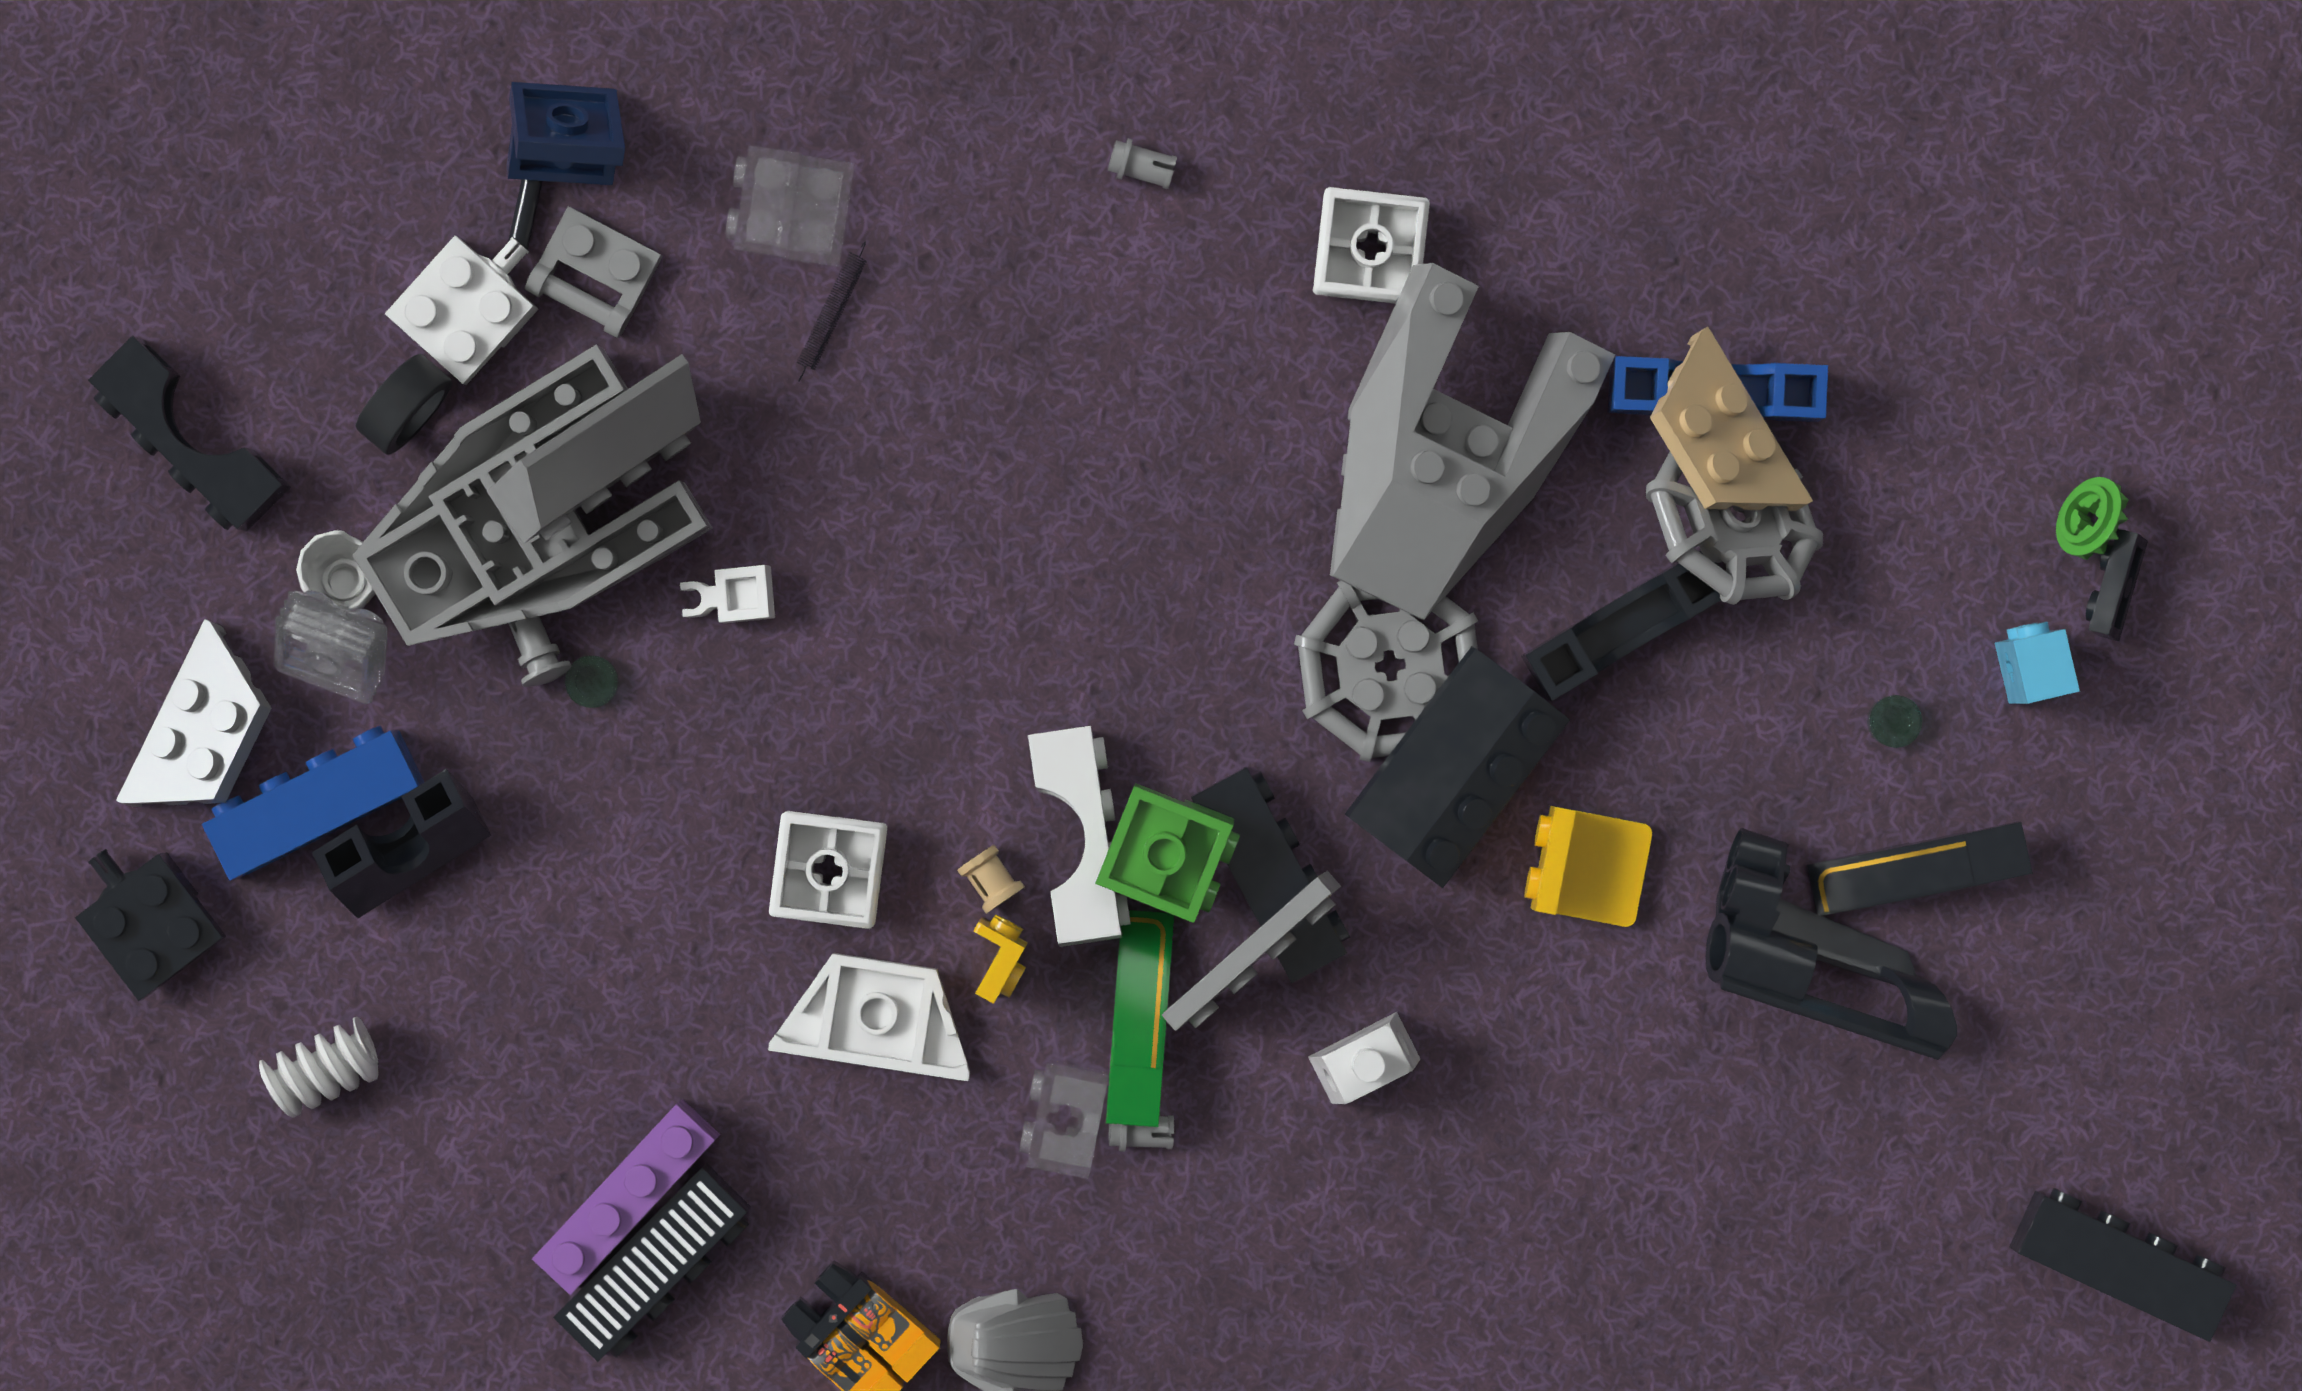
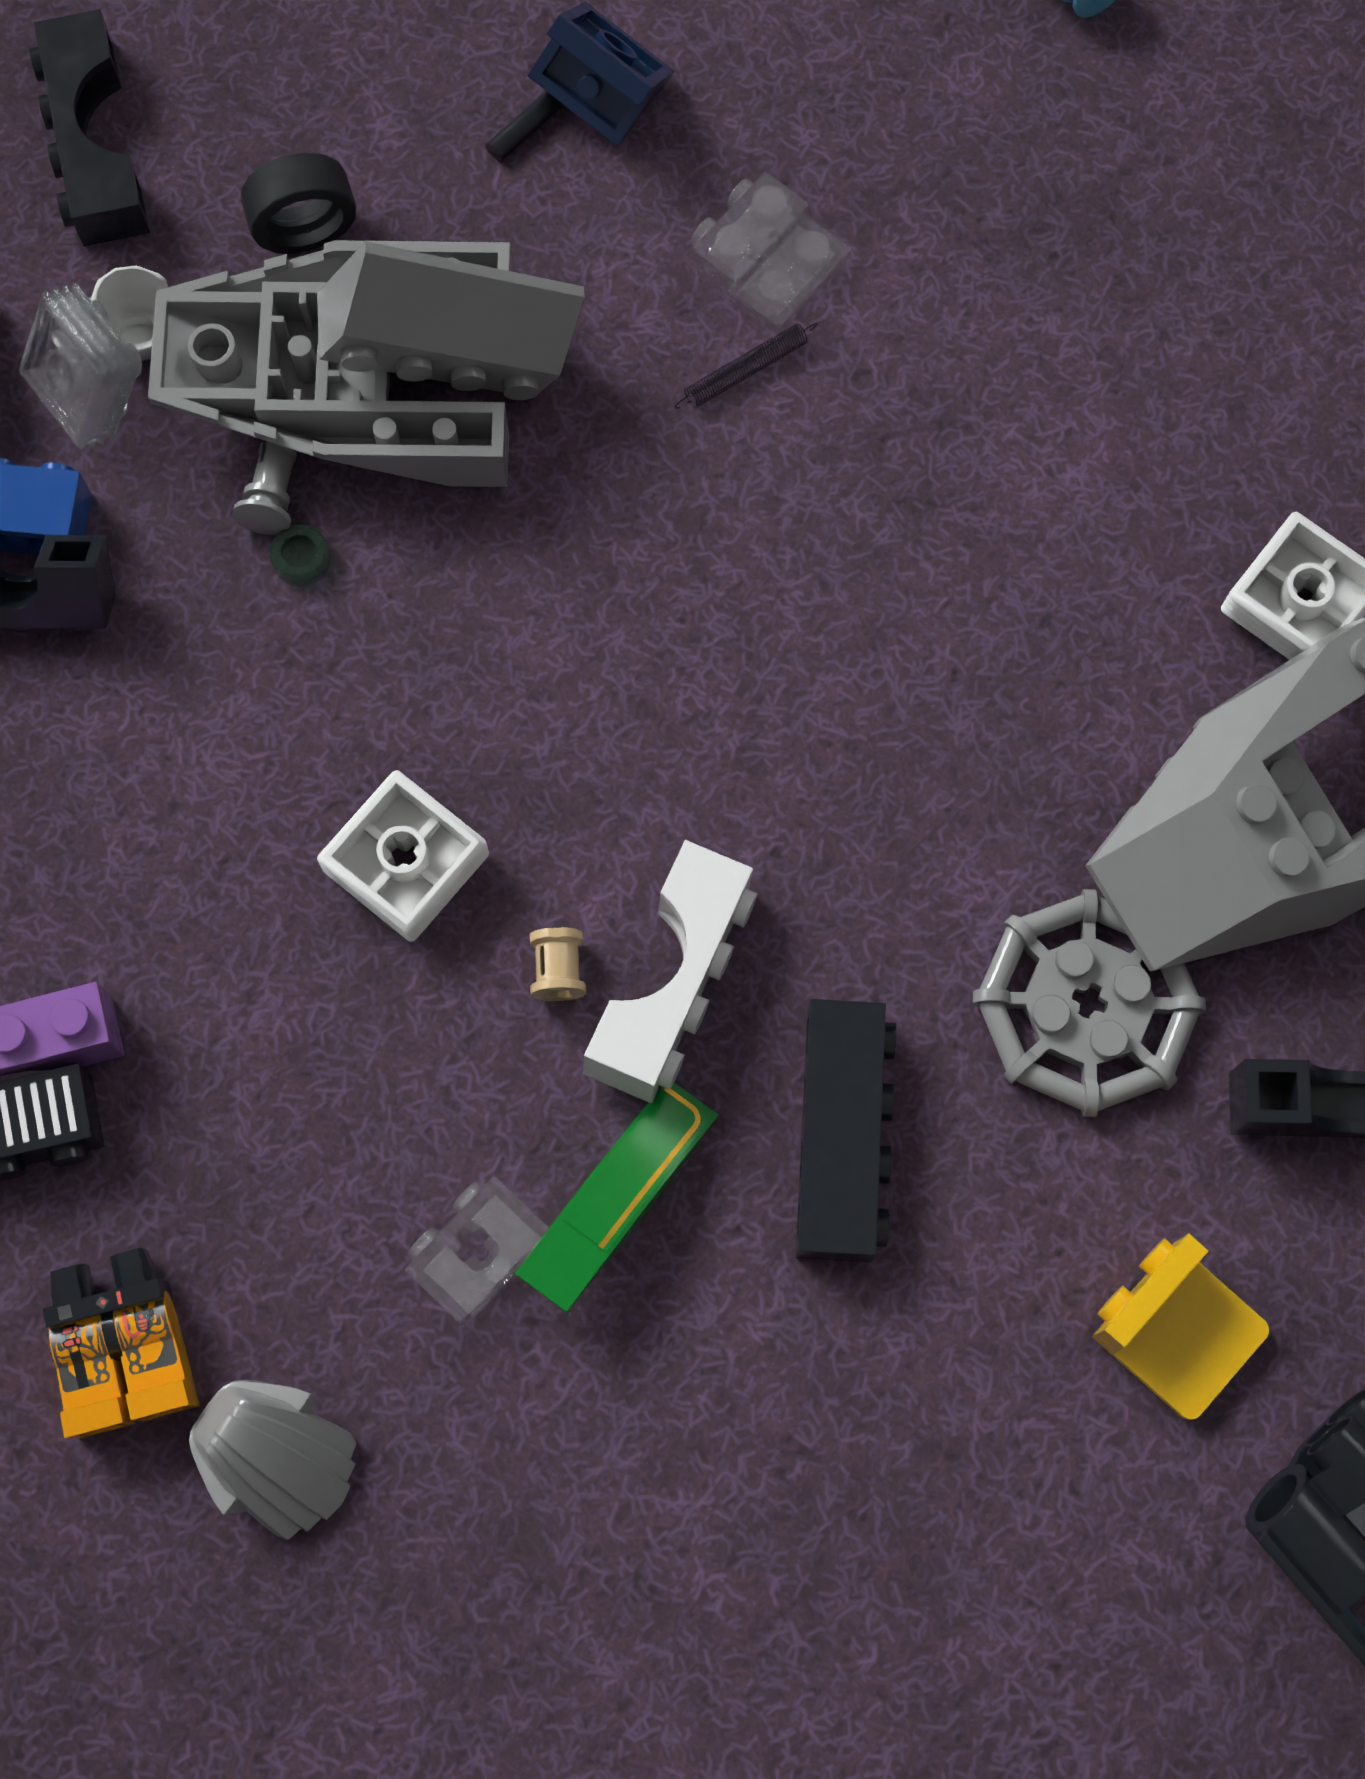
camera: 30 degrees right, 15 degrees down
(464, 307) = (414, 164): white plate -> none
(602, 256) = (566, 200): light grey plate -> none
(738, 594) = (489, 557): white plate -> none
(876, 1018) = (354, 1032): white wing -> none
(1005, 969) = (512, 1050): yellow bracket -> none
(1141, 164) = (1122, 400): light grey pin -> none
(1142, 1136) = (541, 1316): light grey pin -> none
(1168, 853) = (754, 1030): bright green plate -> none
(1237, 967) = (779, 1182): light grey wing -> none
(1365, 1060) = (824, 1382): white torso -> none
(1457, 766) = (1104, 1136): black slope -> none

